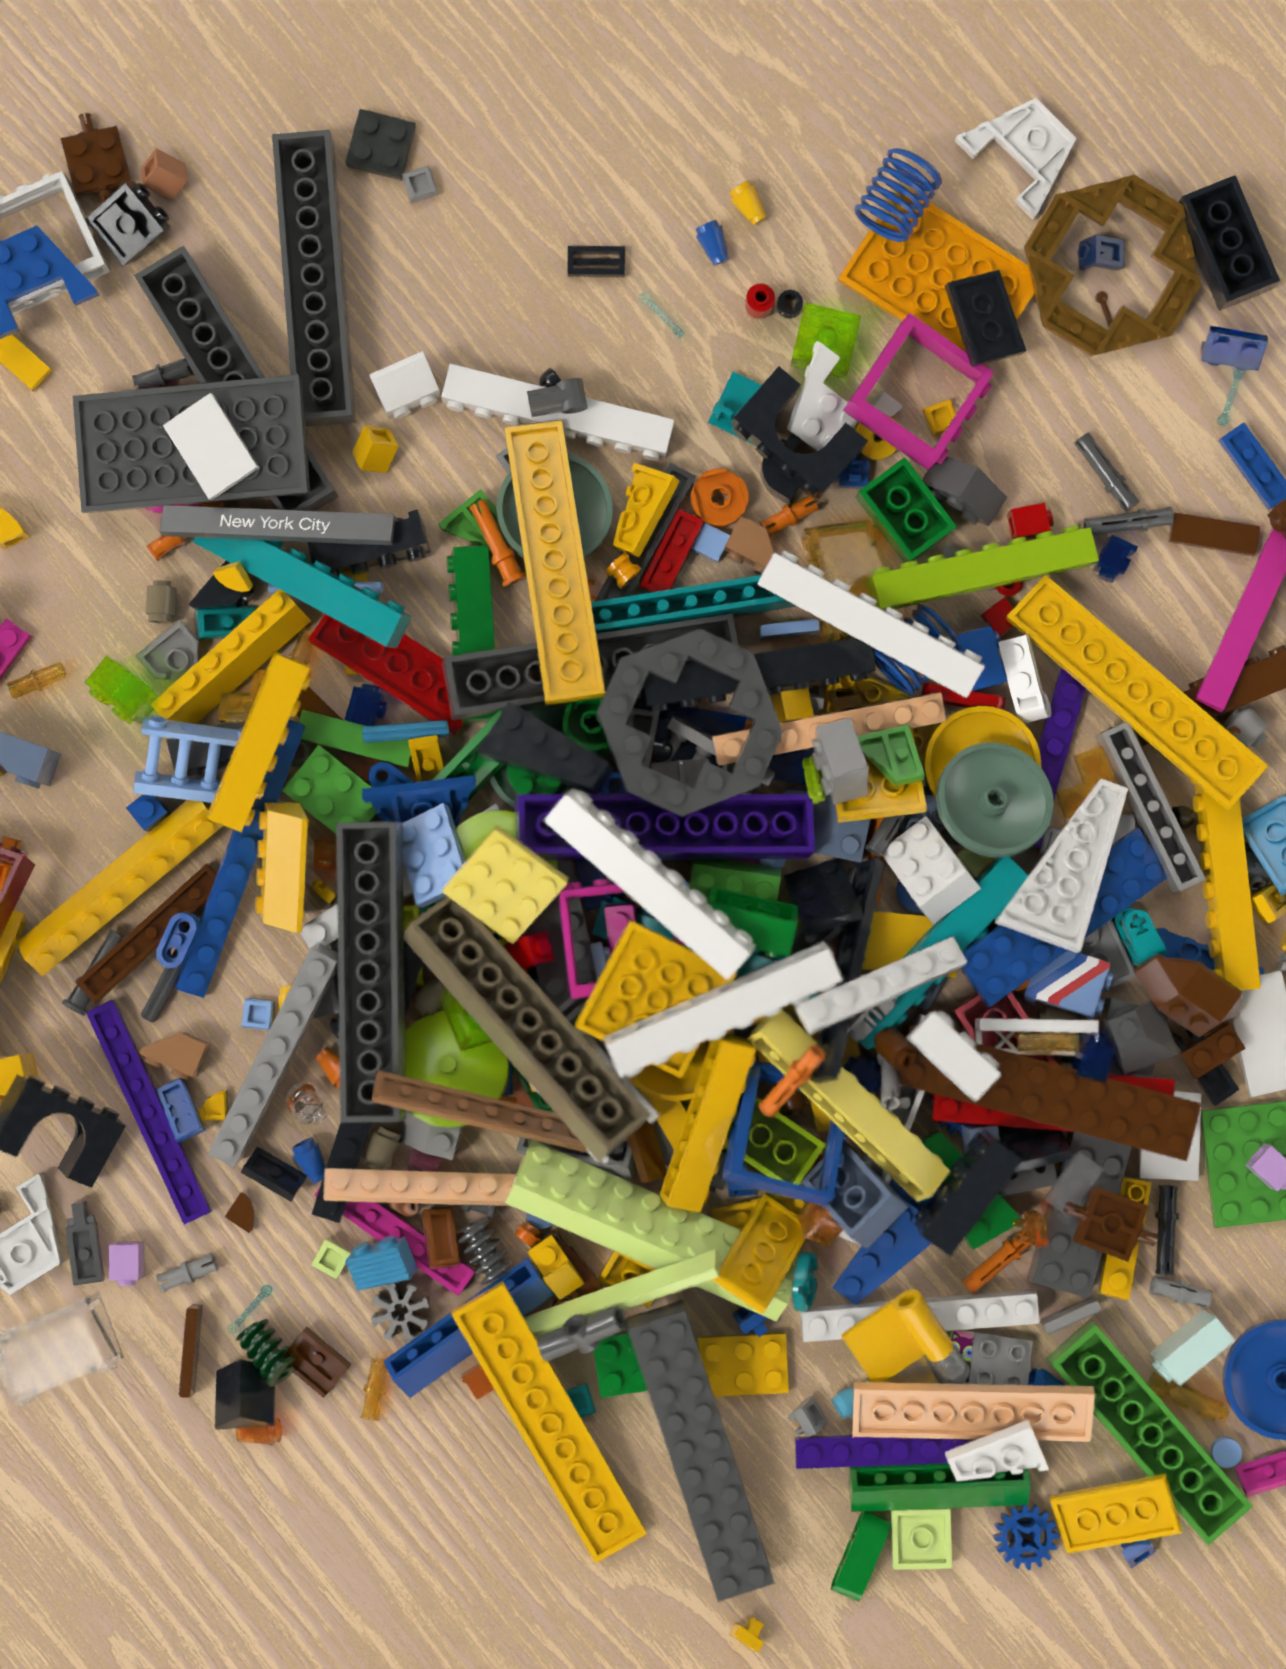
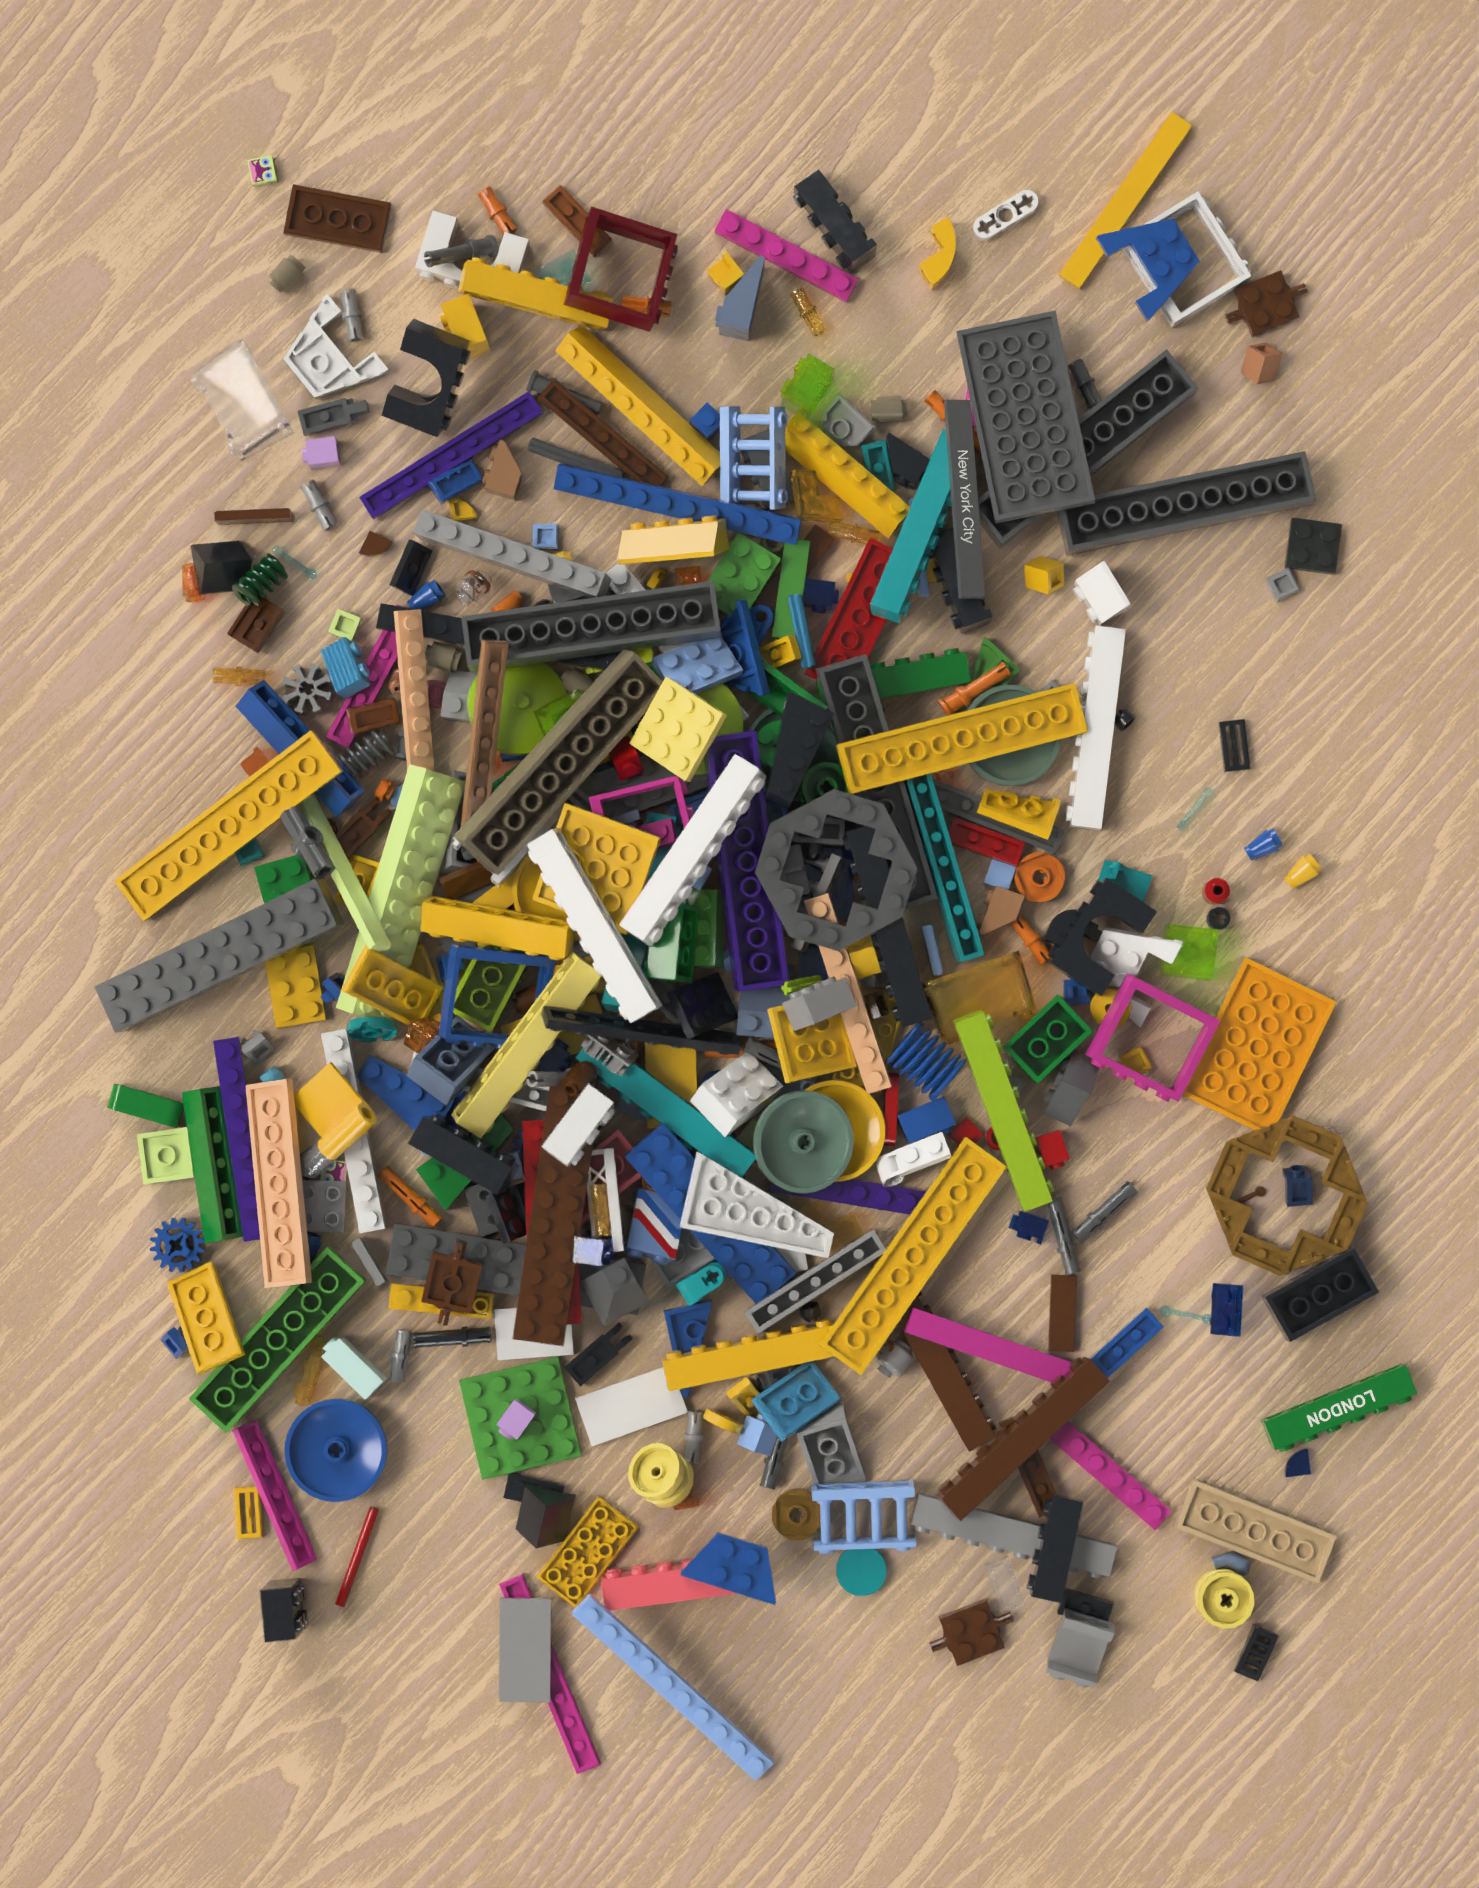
camera: 85 degrees right, 0 degrees up
(128, 221) = (1215, 338): plate -> none
(178, 938) = (601, 460): blue plate -> none
(211, 446) = (1024, 434): white tile -> none
(233, 577) = (916, 467): yellow tile -> none
(258, 742) = (775, 506): yellow brick -> none
(555, 1267) = (359, 816): yellow slope -> none
(565, 397) = (1107, 732): dark grey piece -> none
(623, 570) = (964, 800): light orange wheel -> none
(749, 1634) = (67, 1017): yellow tile -> none
(799, 1072) = (547, 995): orange pin -> none
(872, 624) = (940, 1016): white brick -> none
(880, 985) = (630, 1058): white plate -> none
(893, 754) = (832, 1049): bright green wing -> none
(907, 178) = (1347, 995): blue piece -> none
(985, 318) = (1224, 1088): black tile -> none
(1004, 1450) = (248, 1213): white wing -> none
(1032, 140) = (1391, 1113): white wing -> none
(1035, 1229) = (439, 1220): clear orange tile -> none
(1073, 1182) = (483, 1248): clear tile -> none
(1190, 993) = (656, 1330): reddish brown wedge -> none
(1212, 1051) = (610, 1358): reddish brown plate -> none
(1226, 1452) = (268, 1410): light blue tile -> none

